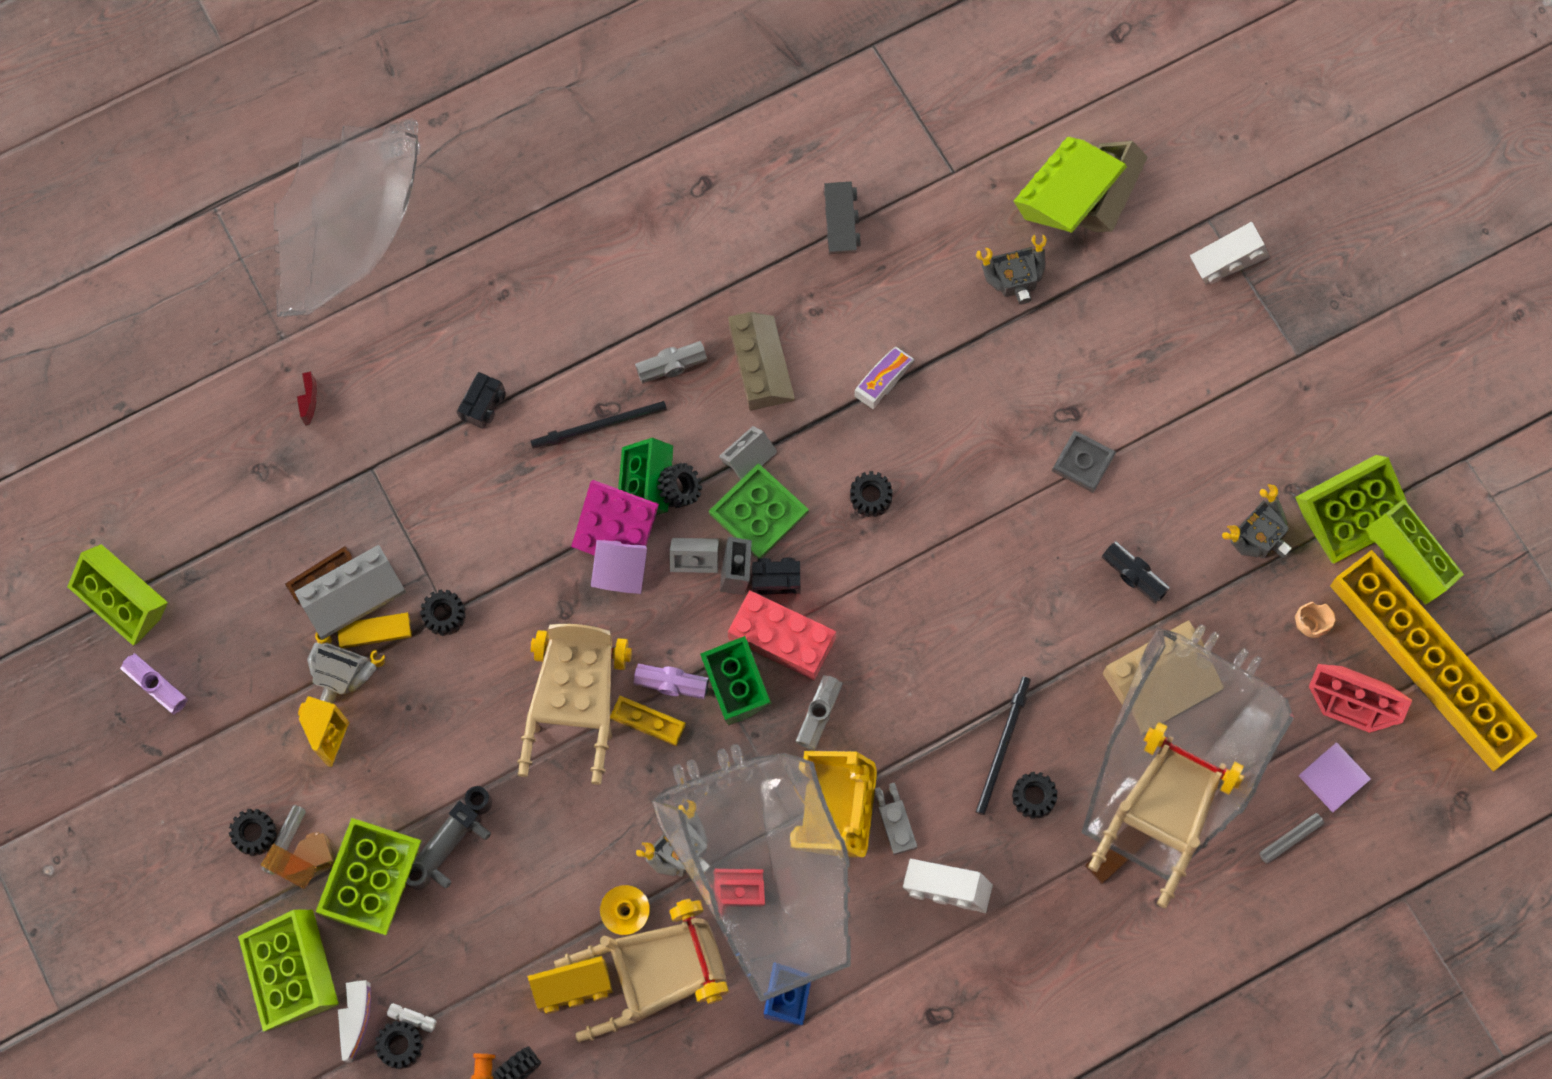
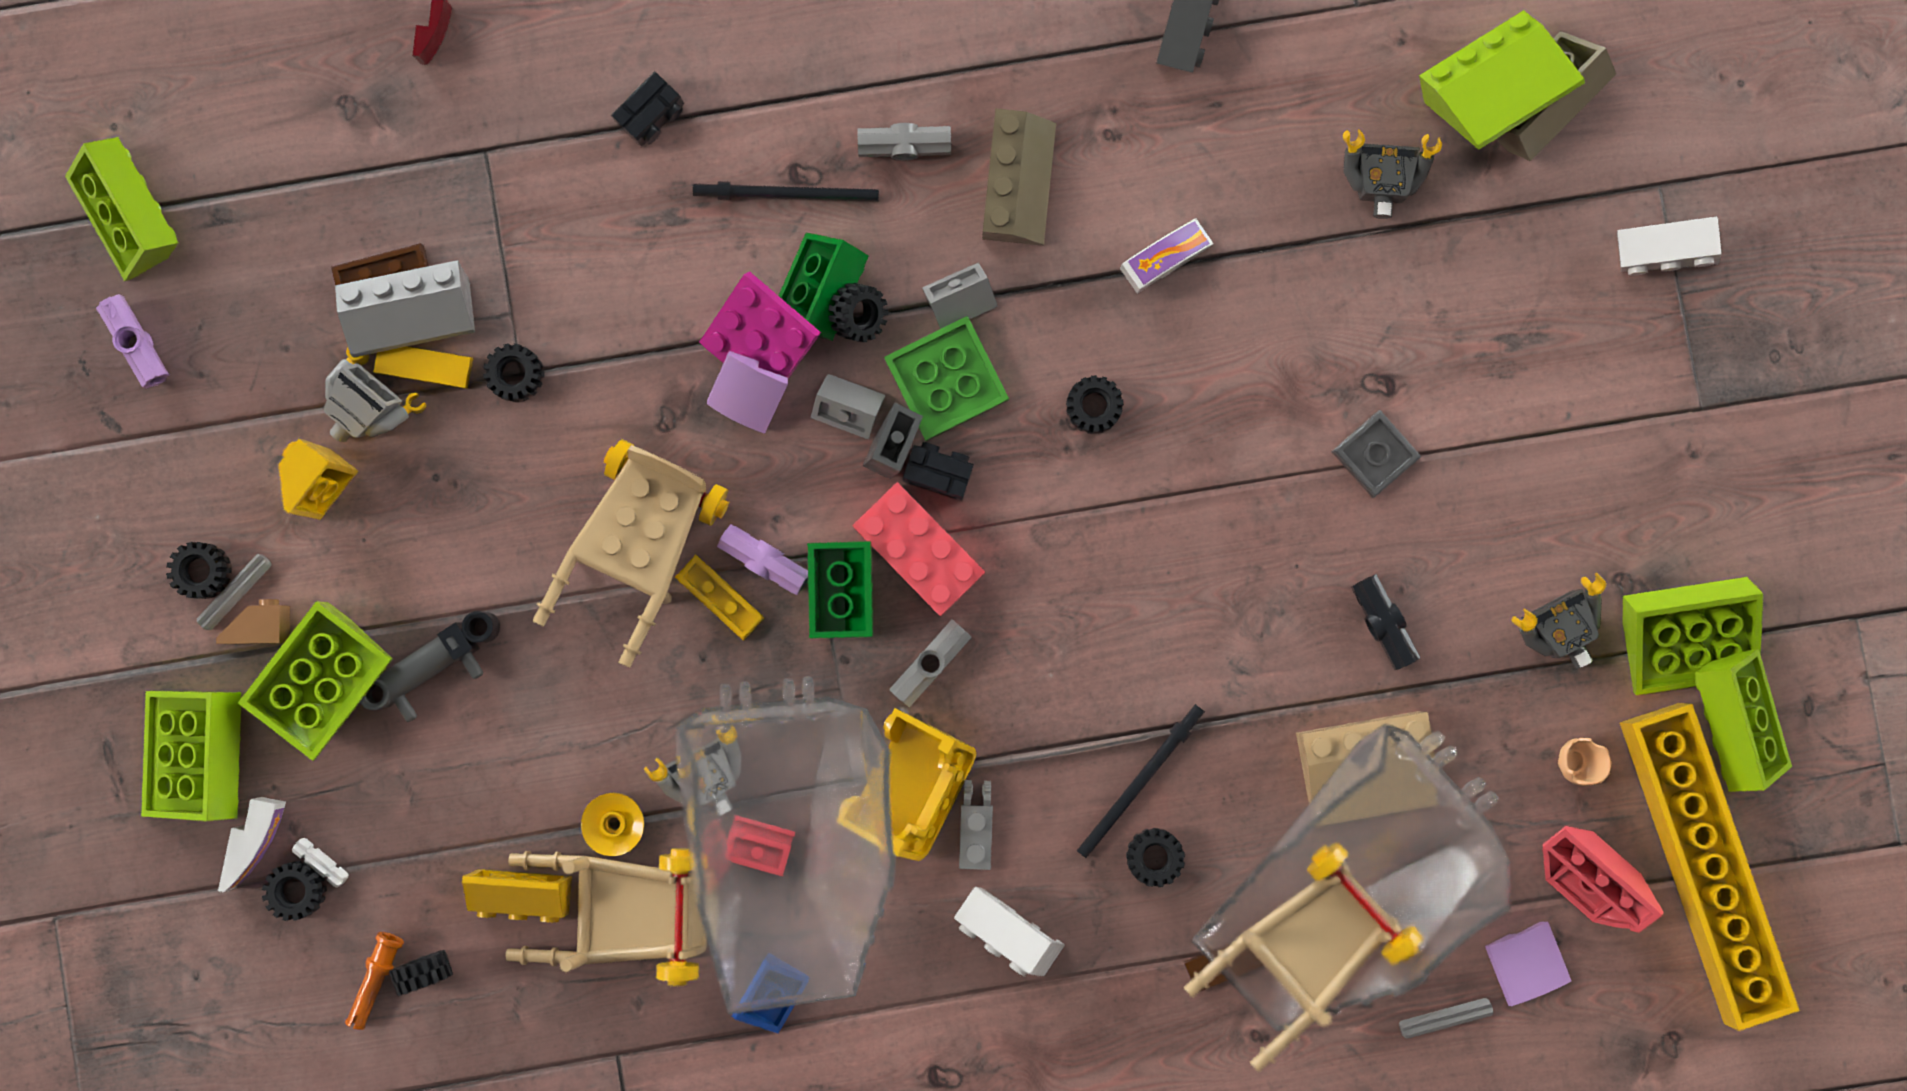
camera: 20 degrees right, 15 degrees up
(288, 866) = (223, 634): clear orange tile -> none

